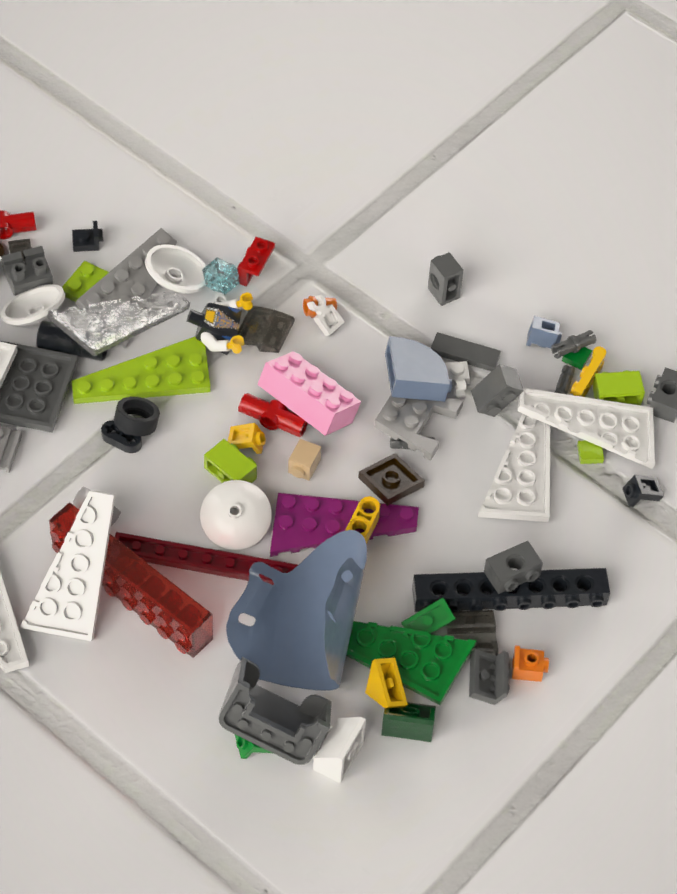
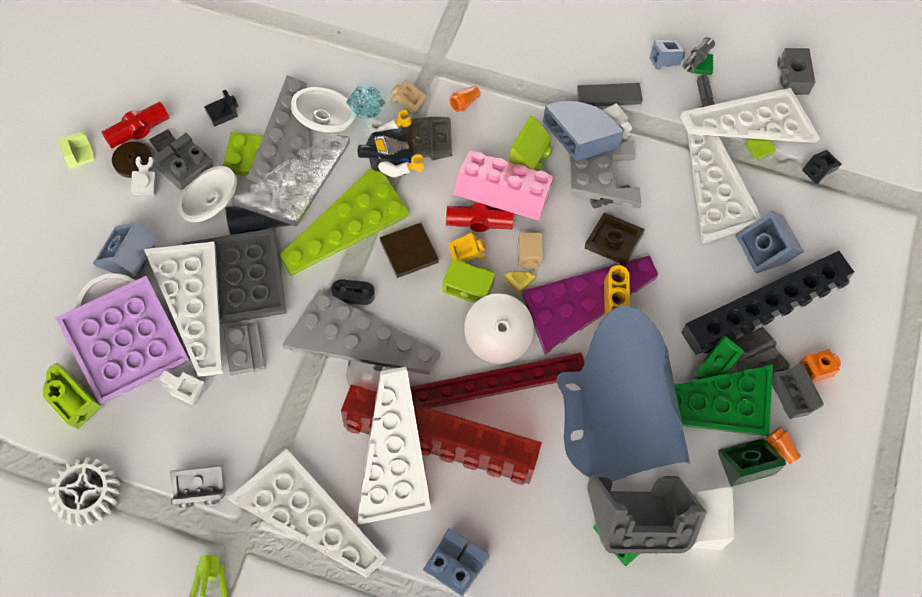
camera: 25 degrees left, 10 degrees up
(88, 691) = (445, 565): none -> sand blue hips
(94, 464) = (352, 335): none -> light grey wing
(133, 425) = (359, 279): black tyre -> none
(192, 420) = (409, 250): none -> dark brown tile
(254, 259) = (390, 74): red bracket -> none
(265, 285) = (408, 96): none -> tan bracket
(281, 483) = (519, 280): none -> light yellow tile
(327, 316) = (478, 105): white plate -> none
(354, 367) = (531, 145): none -> lime slope
(385, 684) = (719, 441): yellow slope -> none
(445, 278) = (562, 33): dark grey brick -> none
(449, 715) = (783, 445): none -> orange cone
(497, 390) = (663, 121): dark grey brick -> none
(521, 557) = (776, 272): dark grey brick -> none
(548, 534) = (769, 242): none -> sand blue slope
(588, 373) = (723, 76): yellow plate -> none
(619, 387) = (754, 80): lime brick -> none

